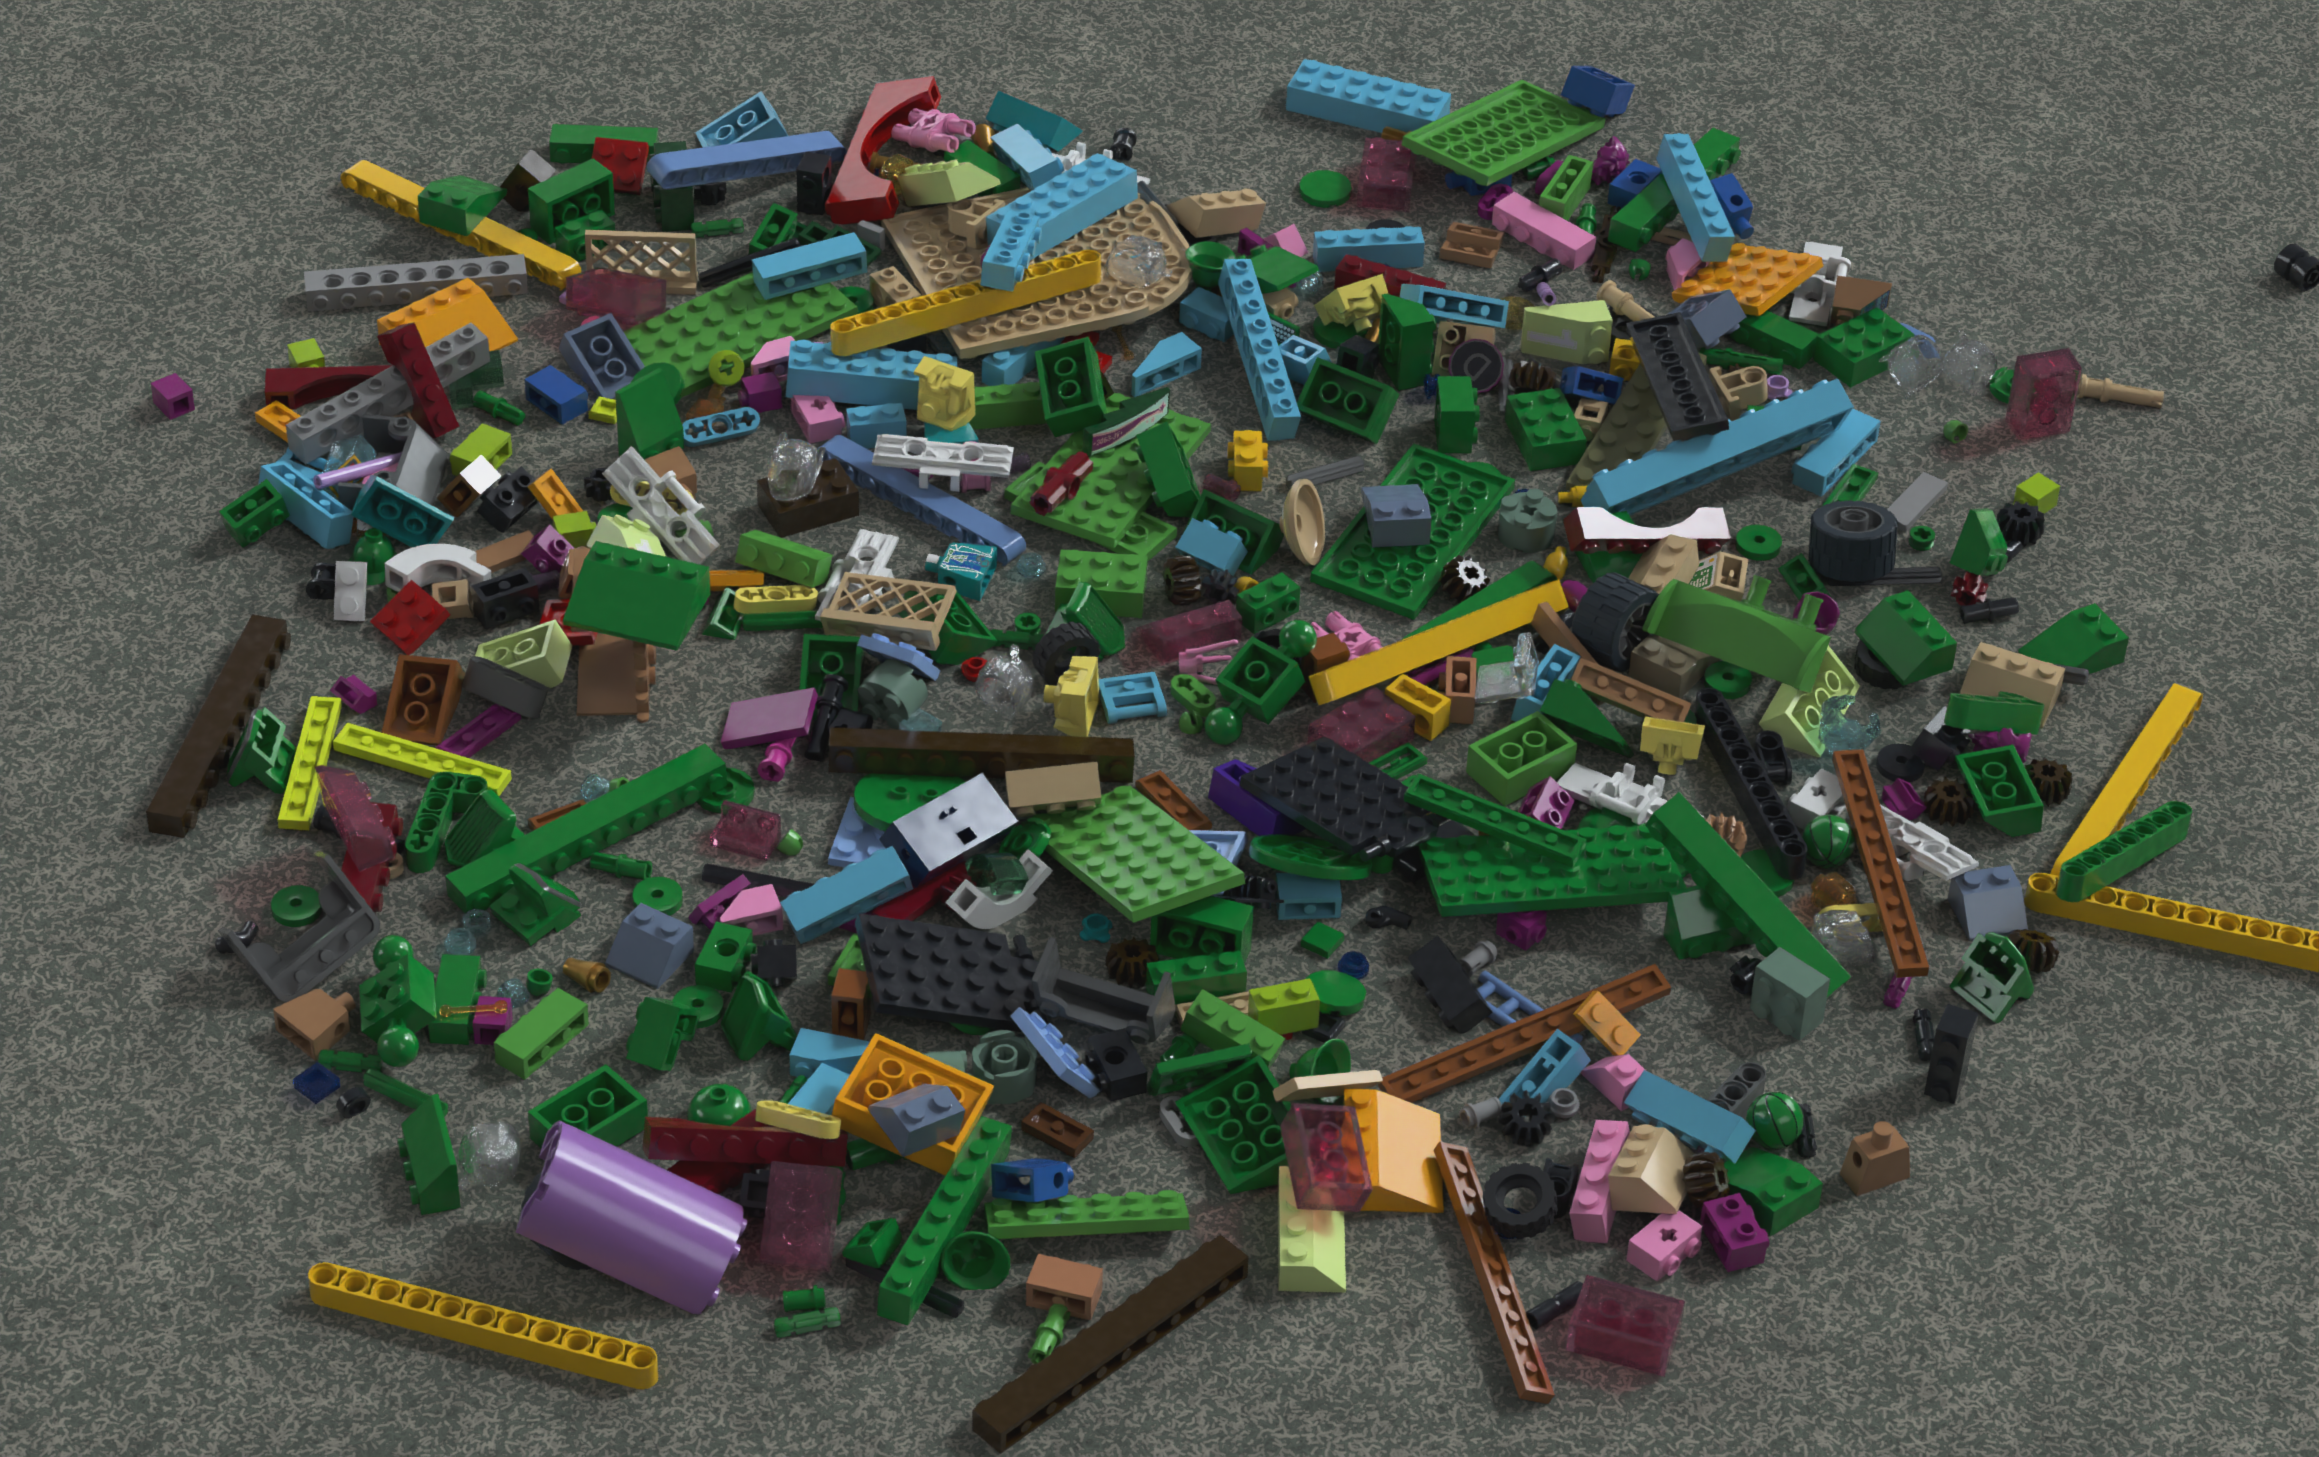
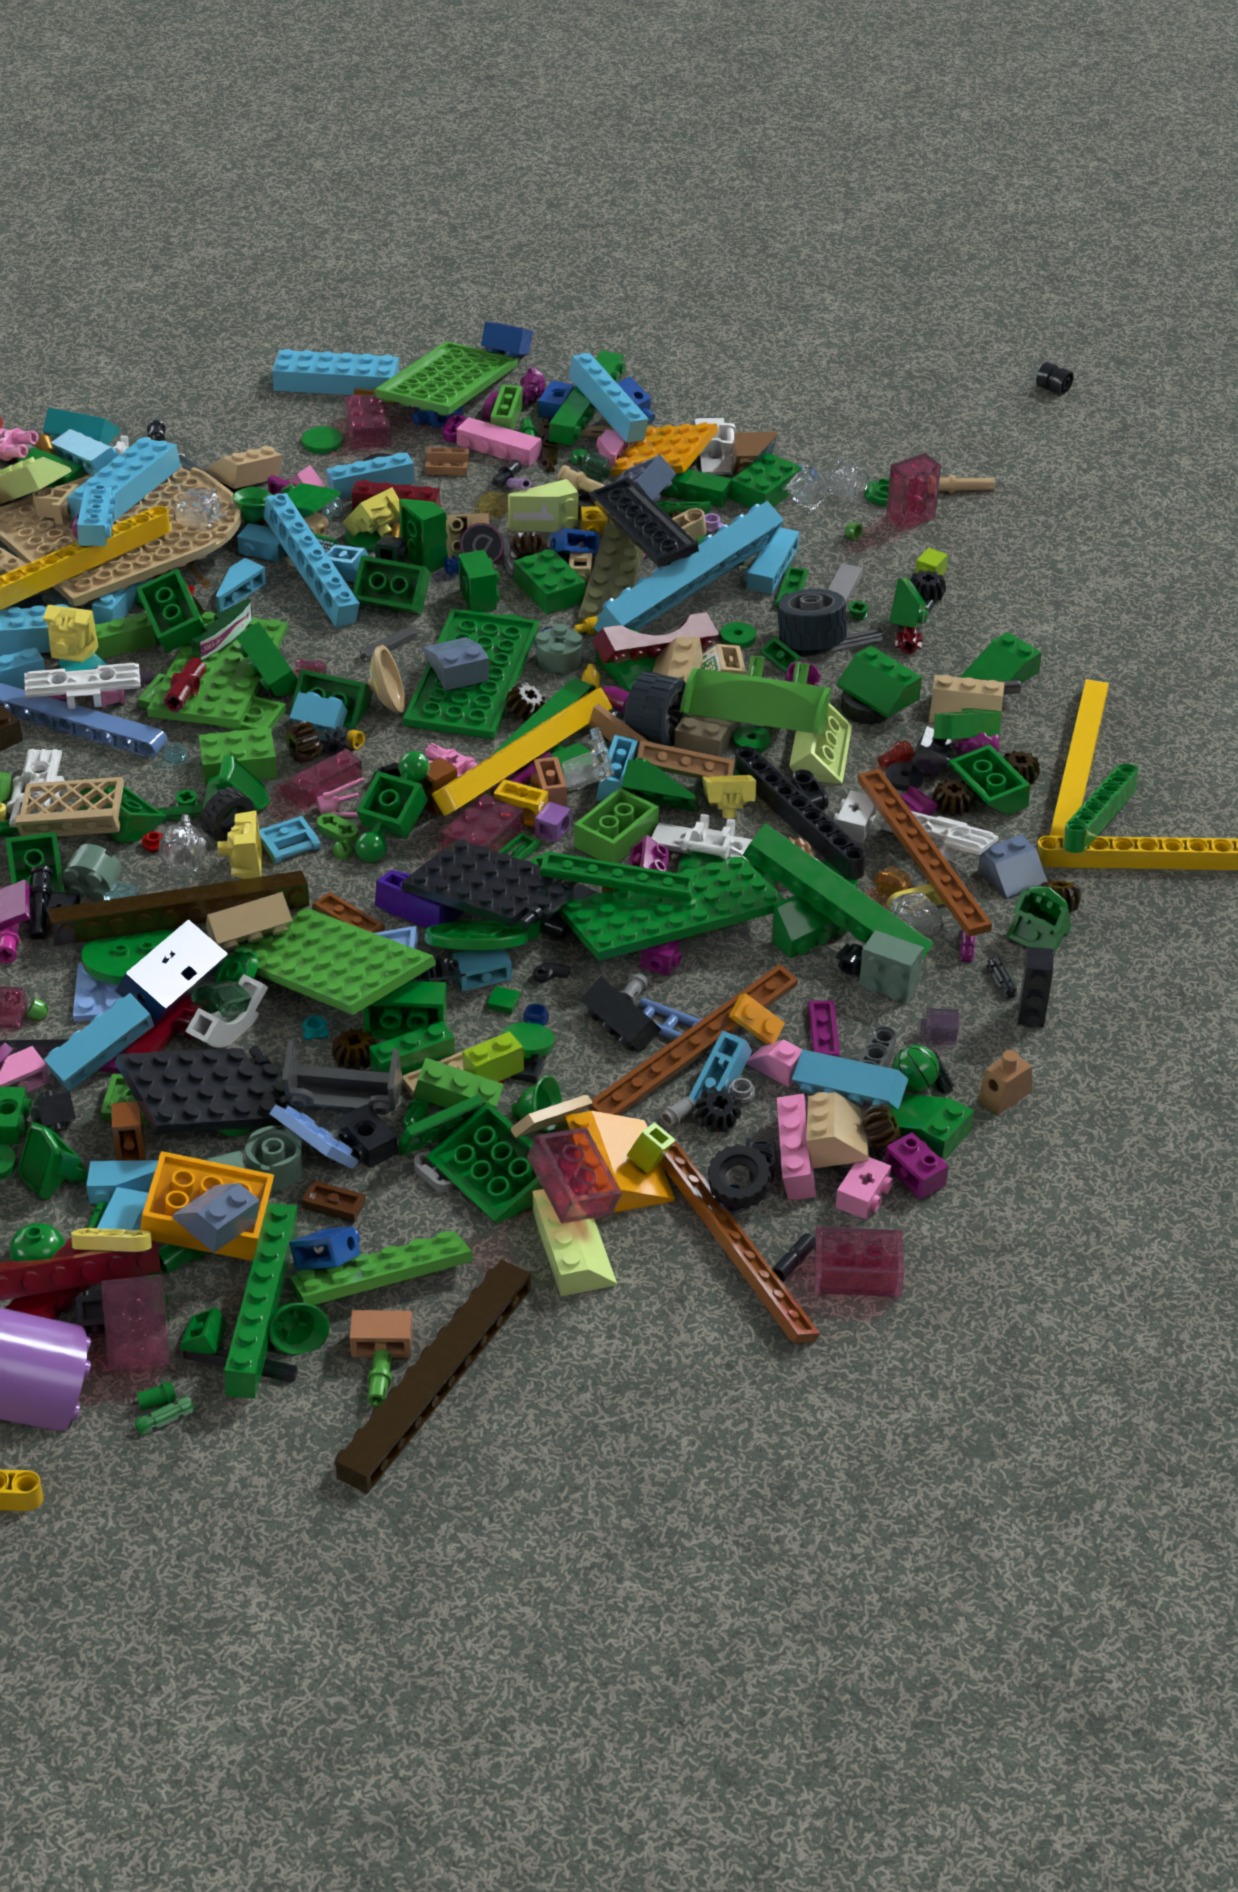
camera: 15 degrees left, 0 degrees up
(882, 649) = (73, 838): light blue plate -> none
(966, 567) = (123, 761): teal torso -> none
(1249, 459) = (326, 642): yellow brick -> none
(1268, 602) = (377, 746): green brick -> none
(1428, 1145) = (650, 1147): none -> lime brick
(1448, 736) = (552, 821): none -> medium lavender brick
(1458, 306) = (457, 502): medium azure brick -> none
(1537, 168) = (479, 400): green pin -> none
(1654, 286) = (595, 466): none -> clear green head
(1687, 1052) = (823, 1027): none -> magenta tile
(1825, 1077) = (940, 1026): none -> clear purple brick
(1829, 841) = (878, 843): green piece -> none
(1844, 733) = (856, 761): clear light blue helmet -> none
(1901, 732) = (896, 753): none -> clear red cone
(1989, 610) = (927, 652): black axle -> none

